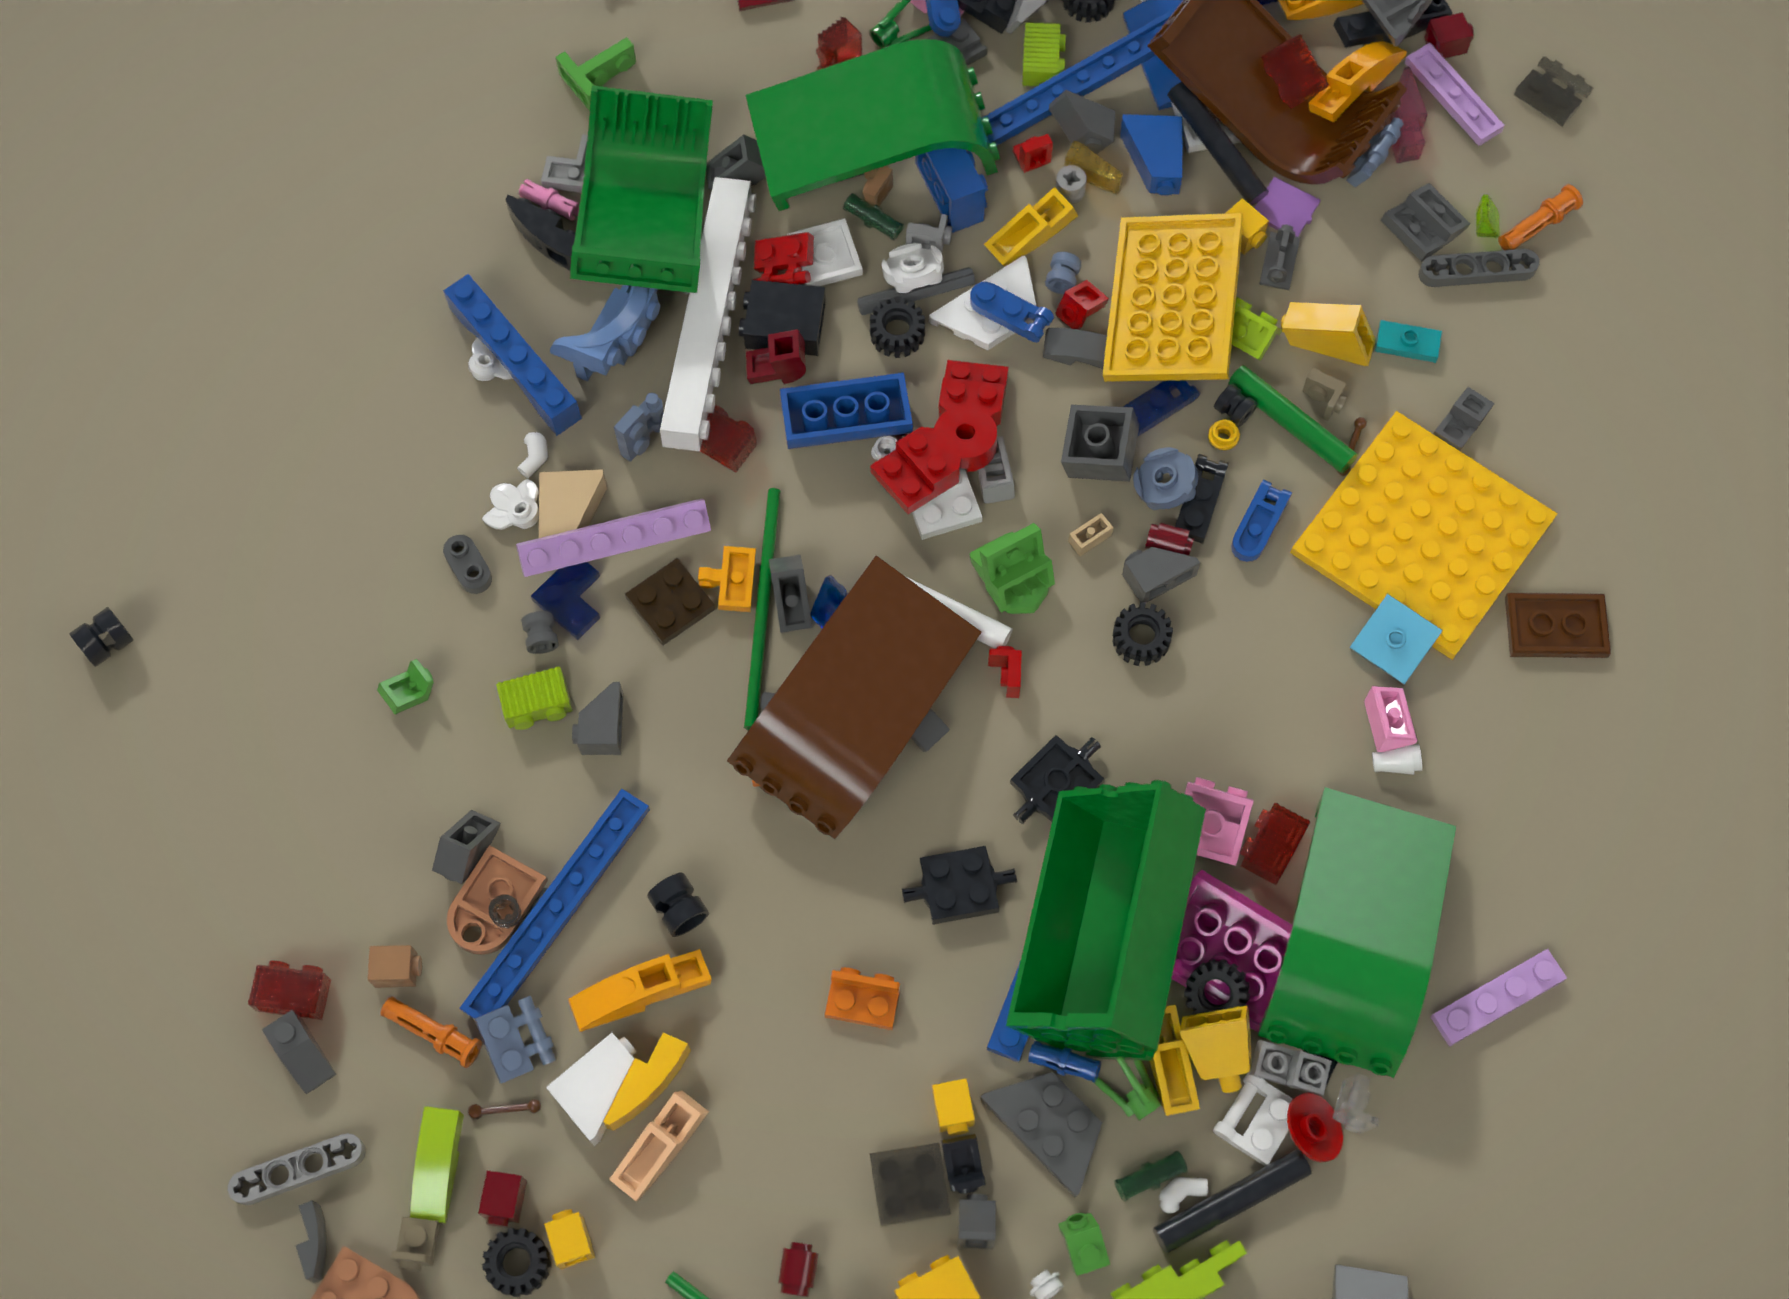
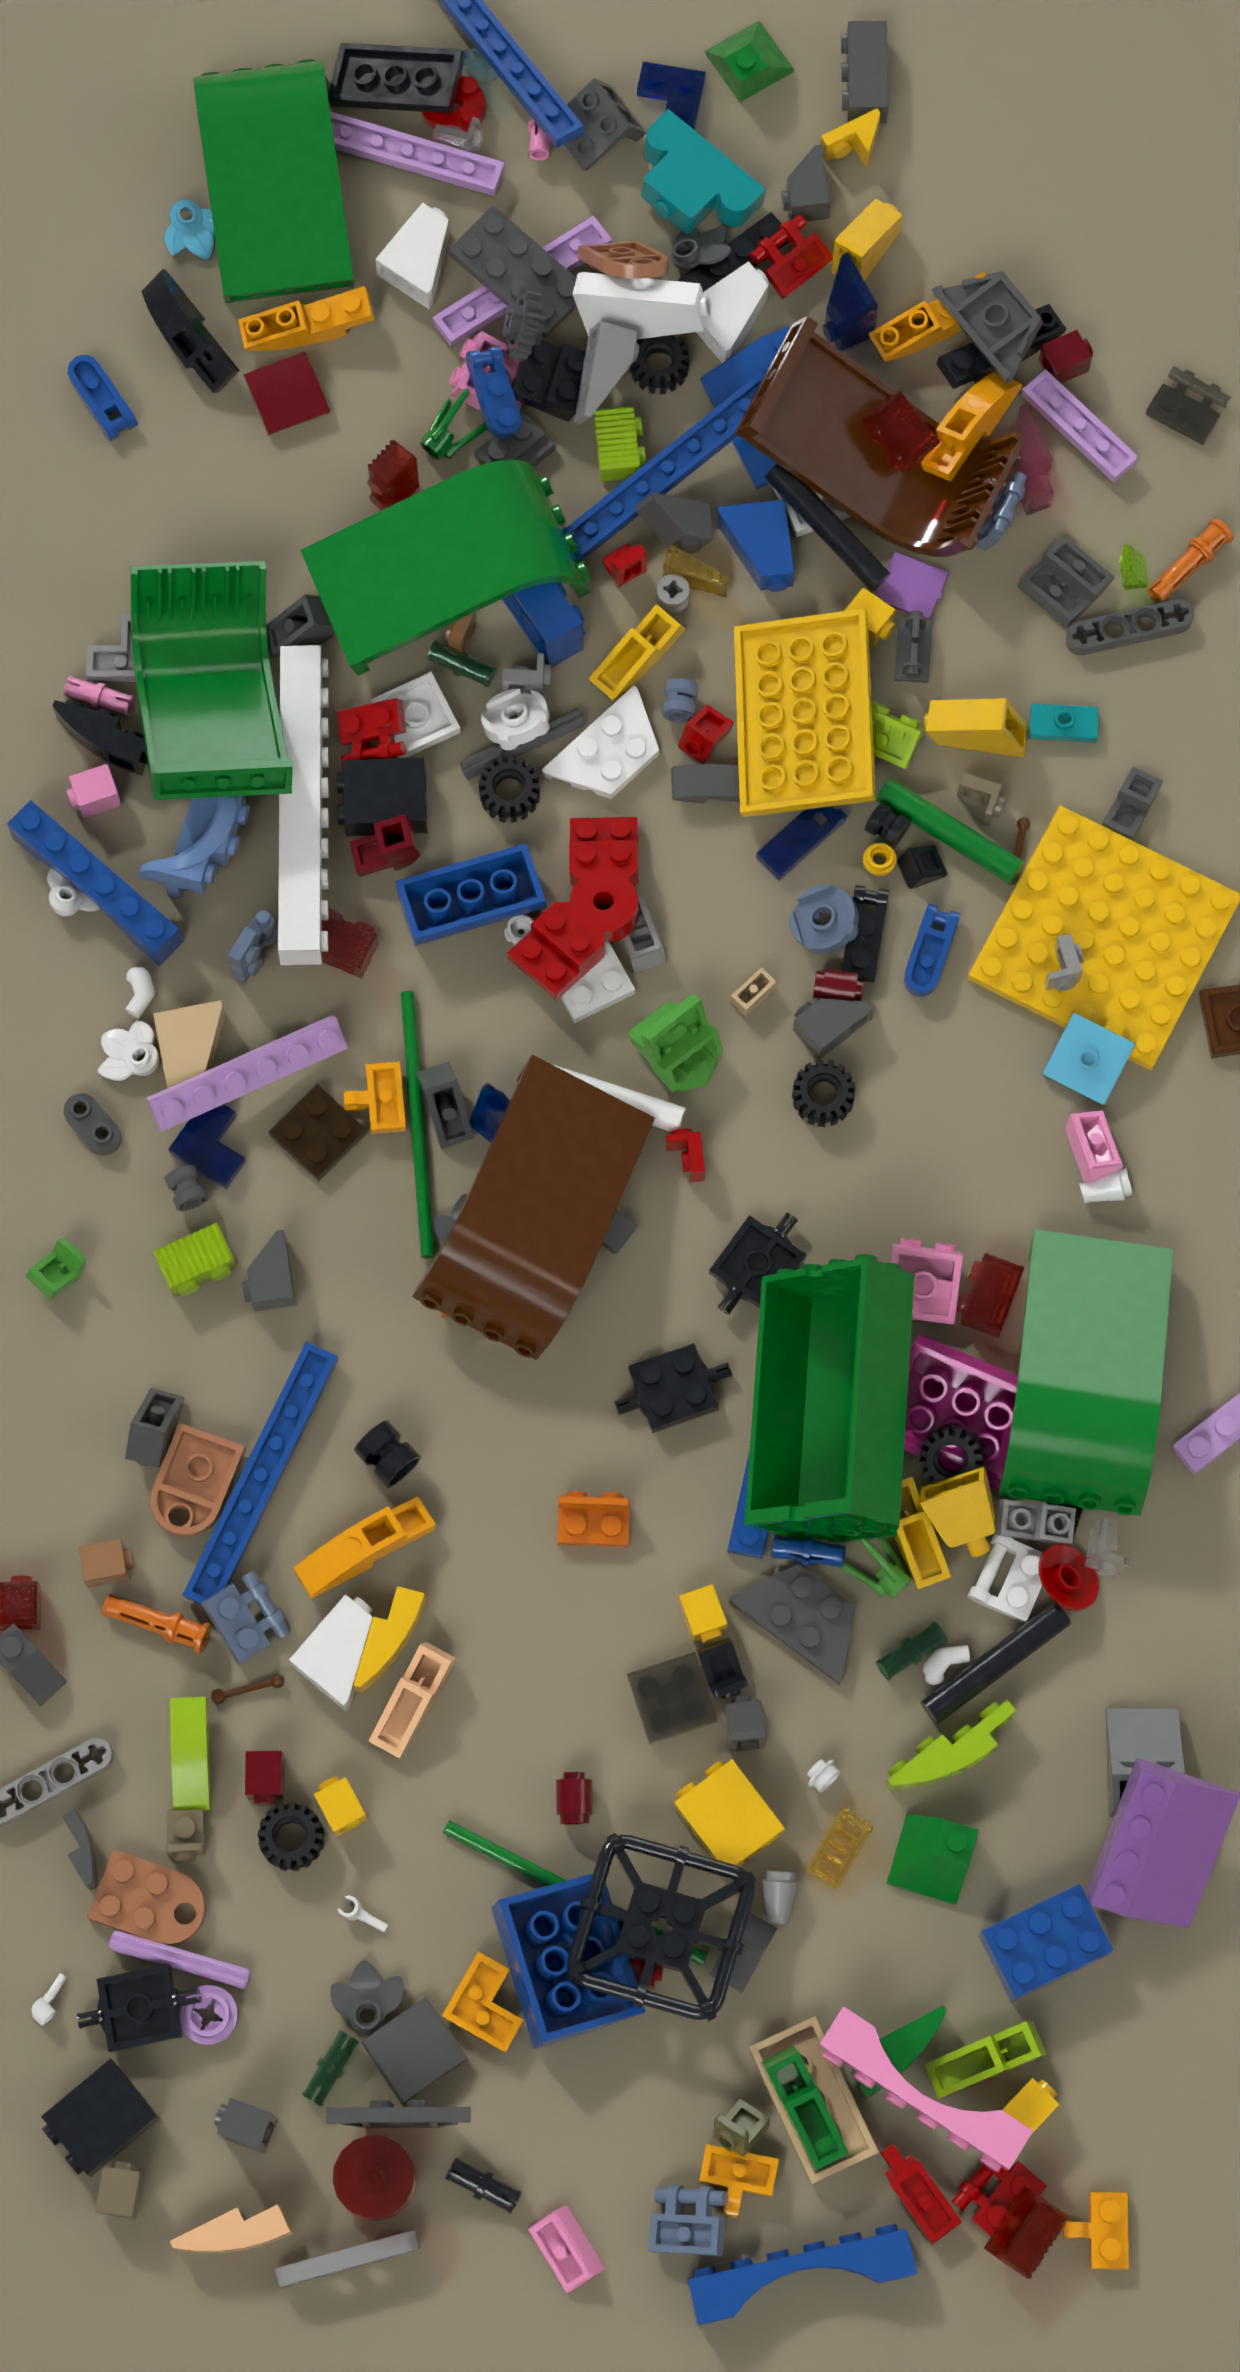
camera: 10 degrees left, 5 degrees up
(510, 919) = (203, 1481): clear smoke bush -> none
(527, 277) = (93, 791): none -> bright pink brick
(597, 69) = (121, 536): bright green bracket -> none
(1010, 310) = (629, 754): blue plate -> none
(1084, 1243) = (854, 1727): bright green bracket -> none
(1100, 442) = (749, 890): dark grey brick -> none
(1261, 446) = (921, 866): none -> black slope
(1389, 546) = (1069, 959): none -> light grey bracket

